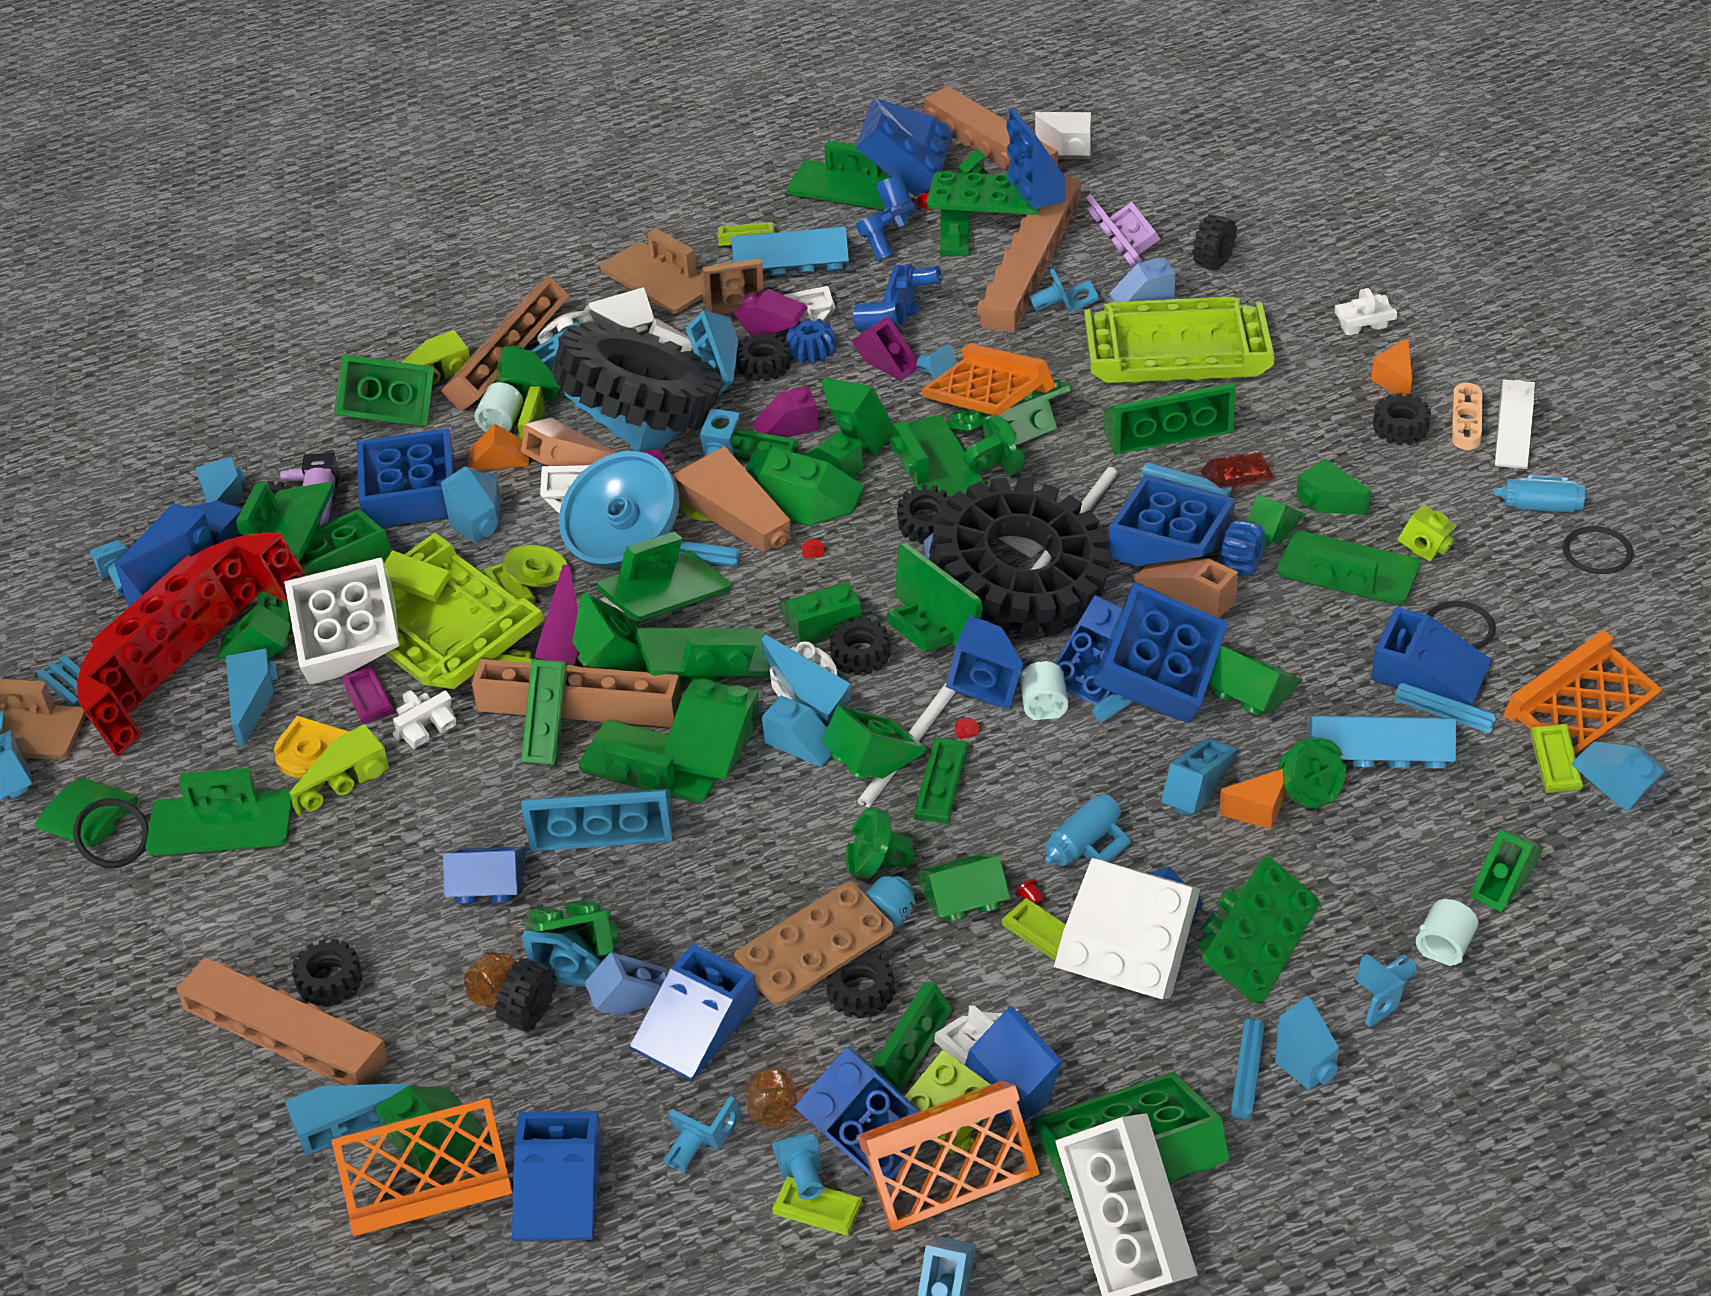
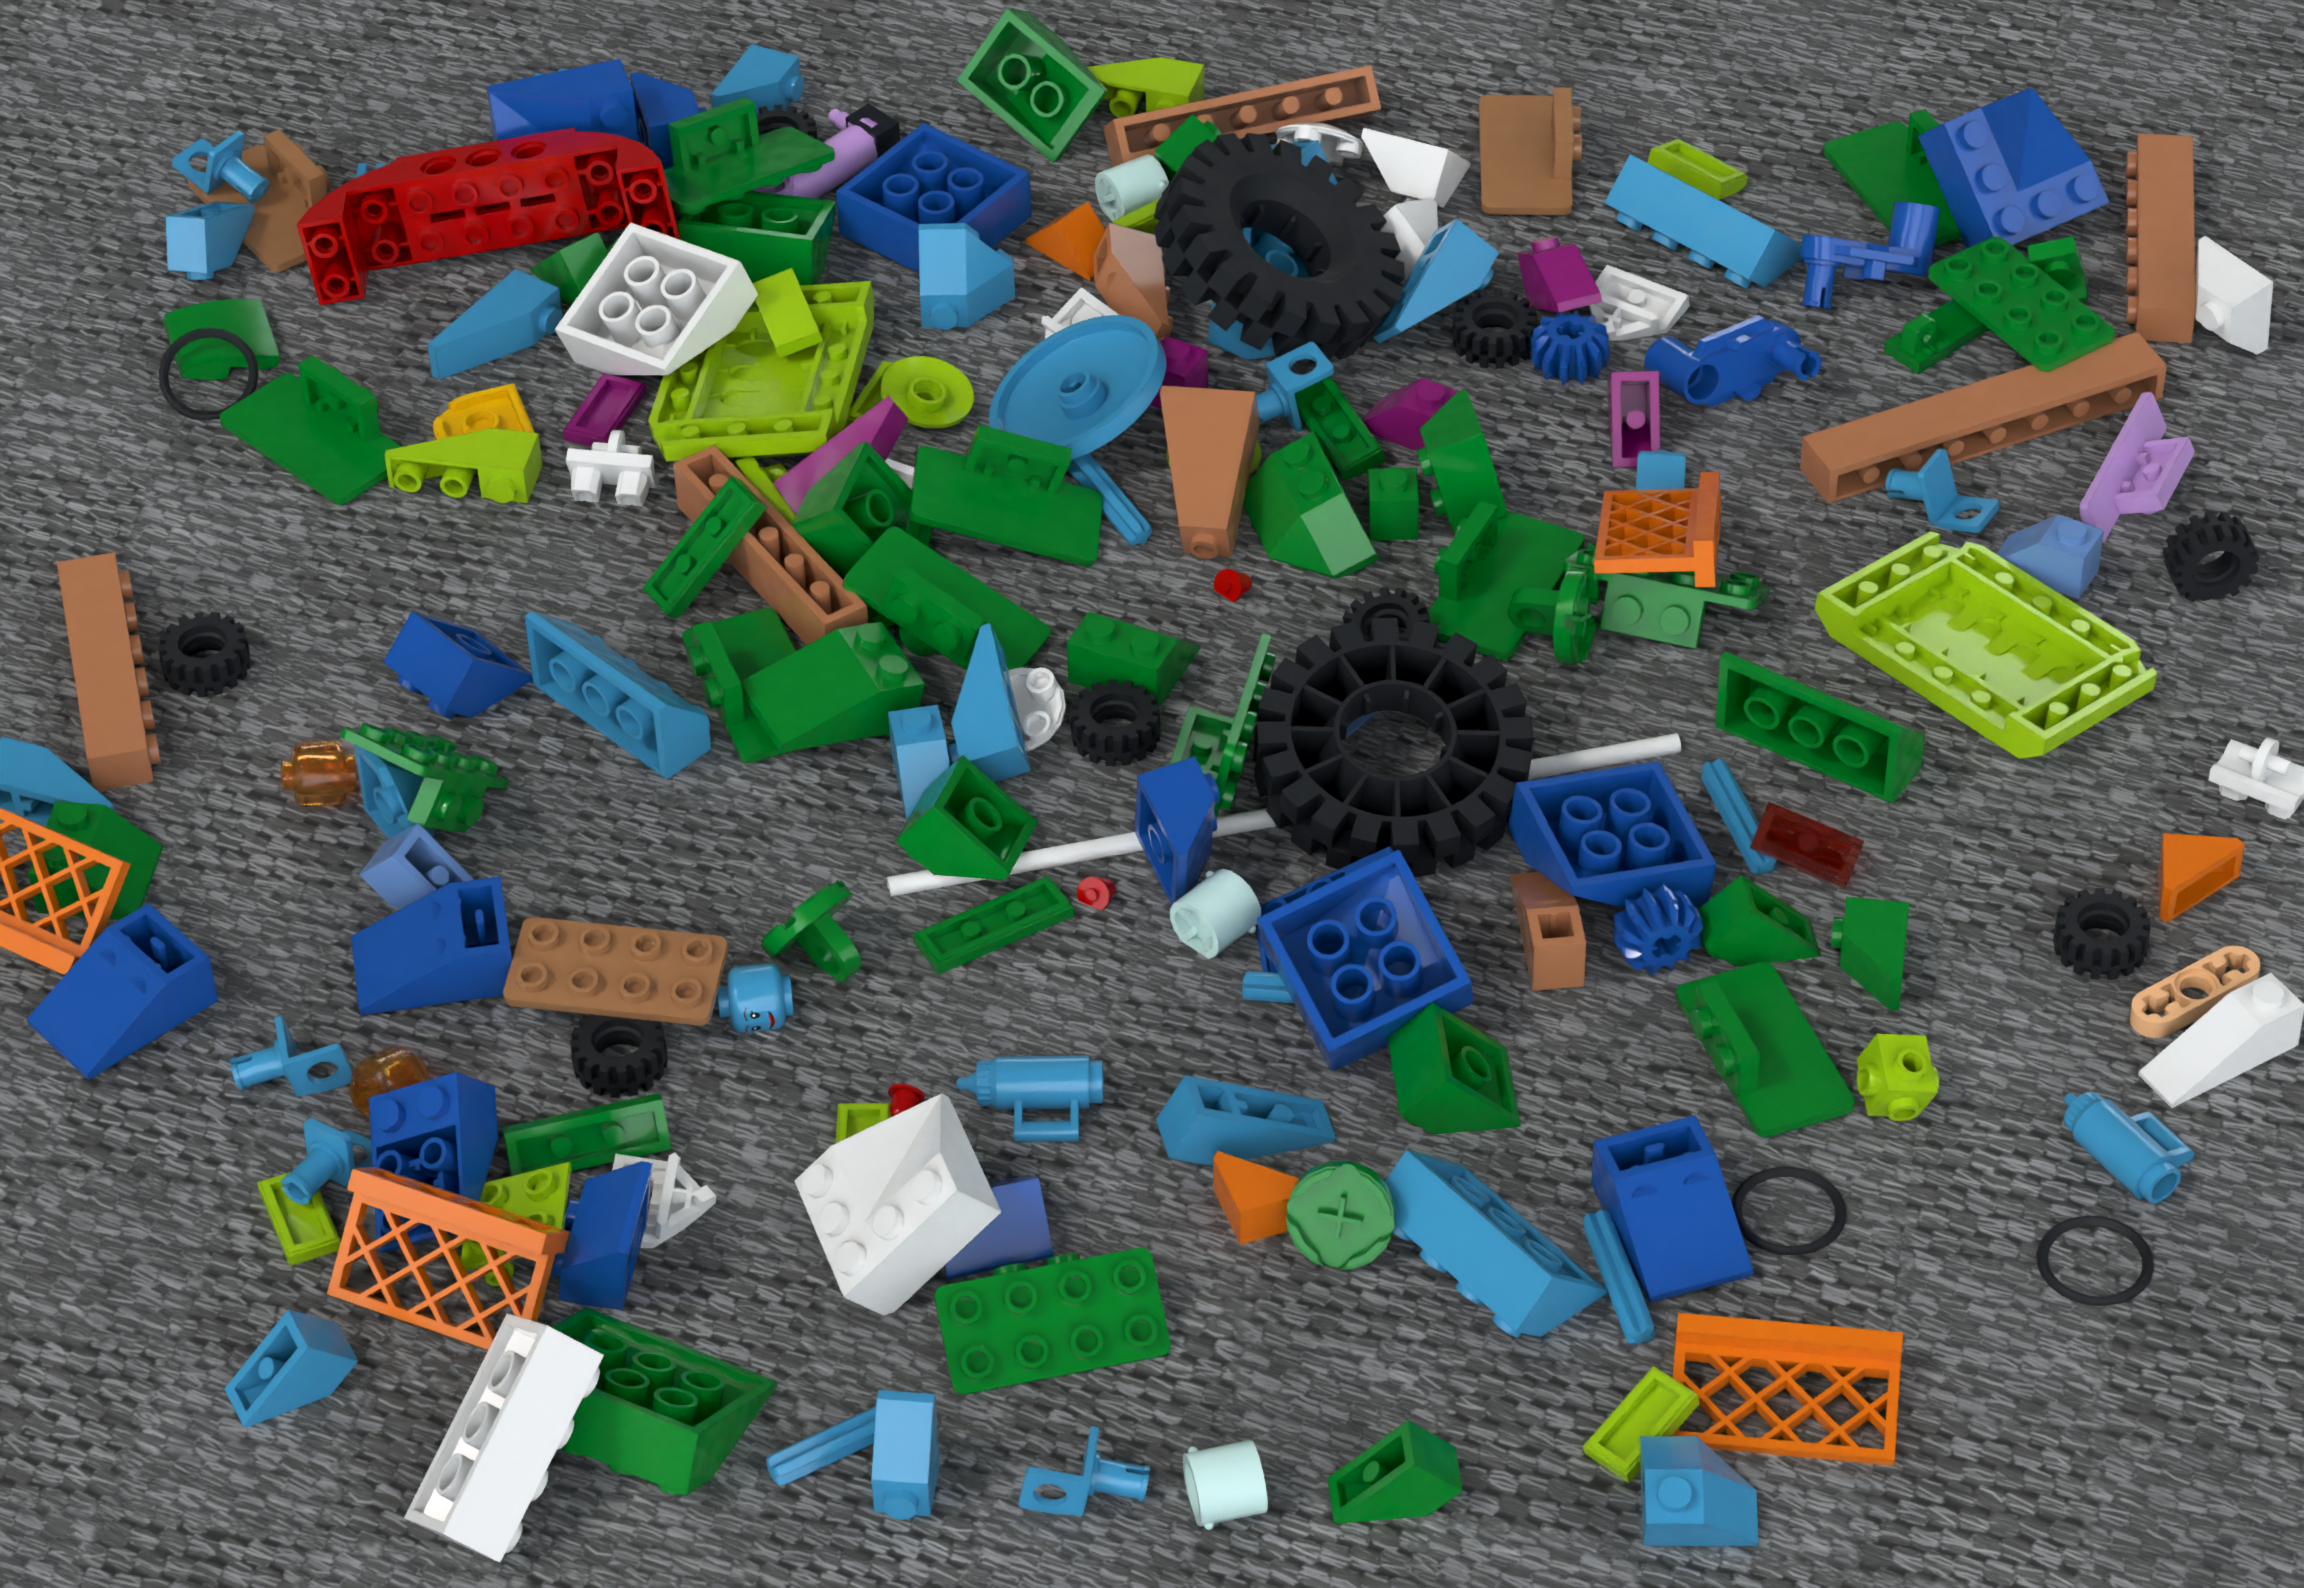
camera: 45 degrees right, 0 degrees up
(525, 994) = (312, 788): black tyre -> none
(728, 283) = (1547, 209): medium nougat slope -> none
(964, 886) = (843, 1038): green slope -> none
(1031, 166) = (2073, 293): blue slope -> none

